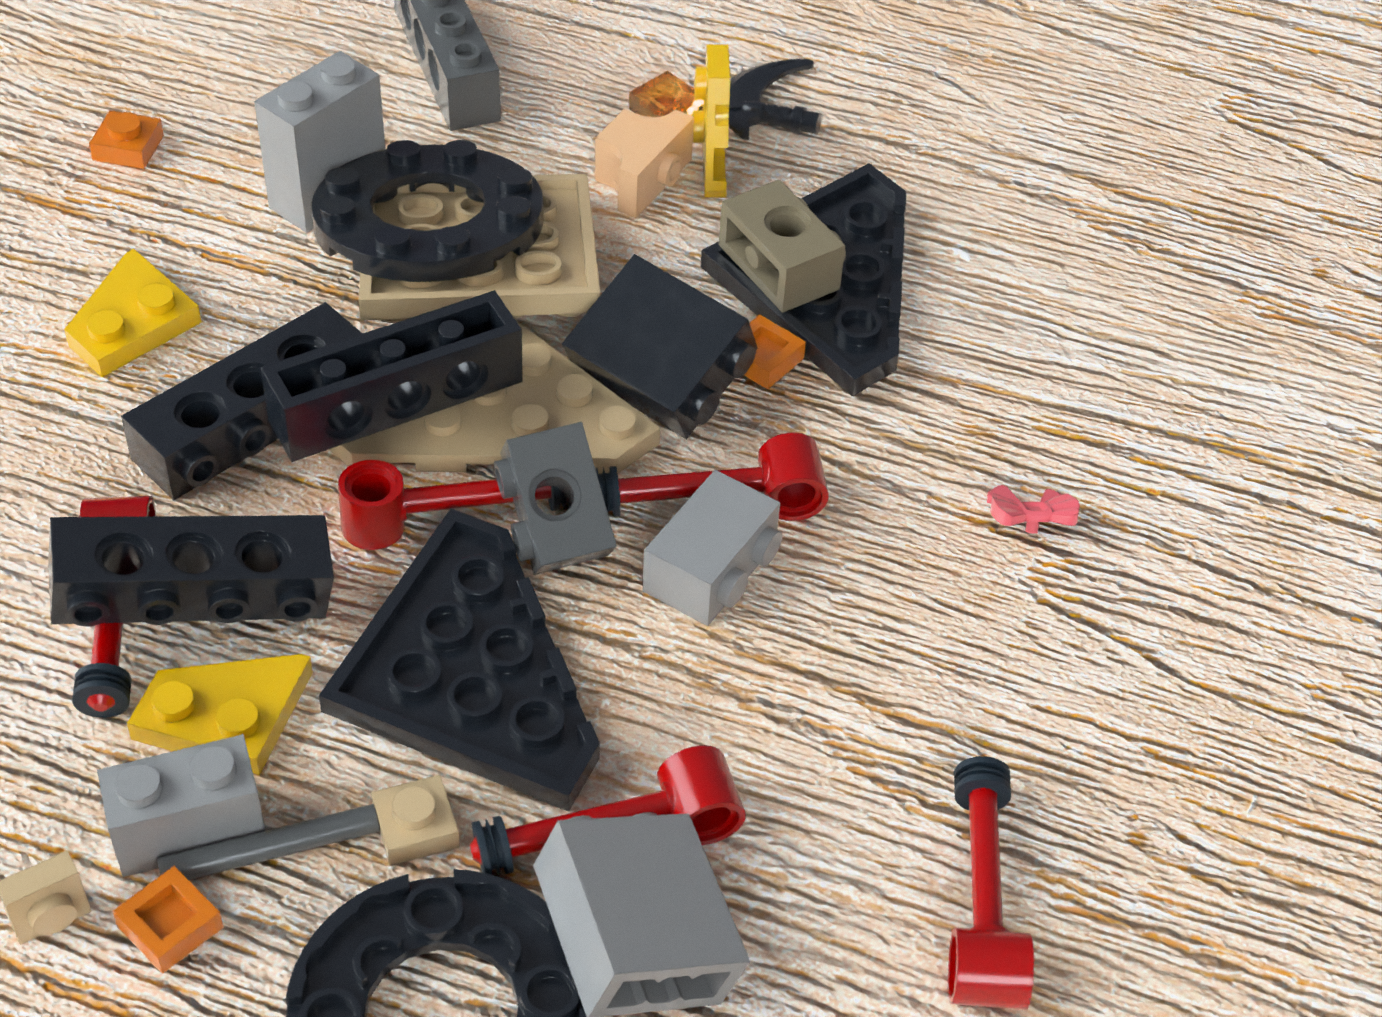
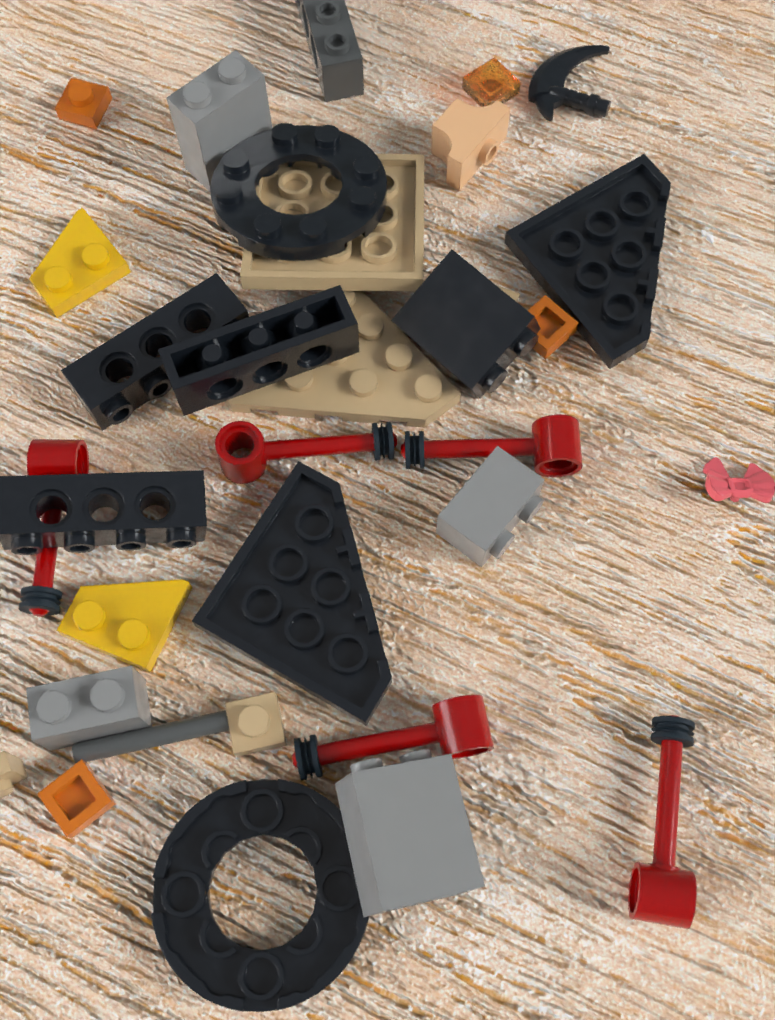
camera: 10 degrees right, 20 degrees up
(560, 460) = (393, 488): dark grey brick -> none
(712, 122) = (524, 109): yellow wing -> none
(781, 245) = (568, 236): dark tan brick -> none

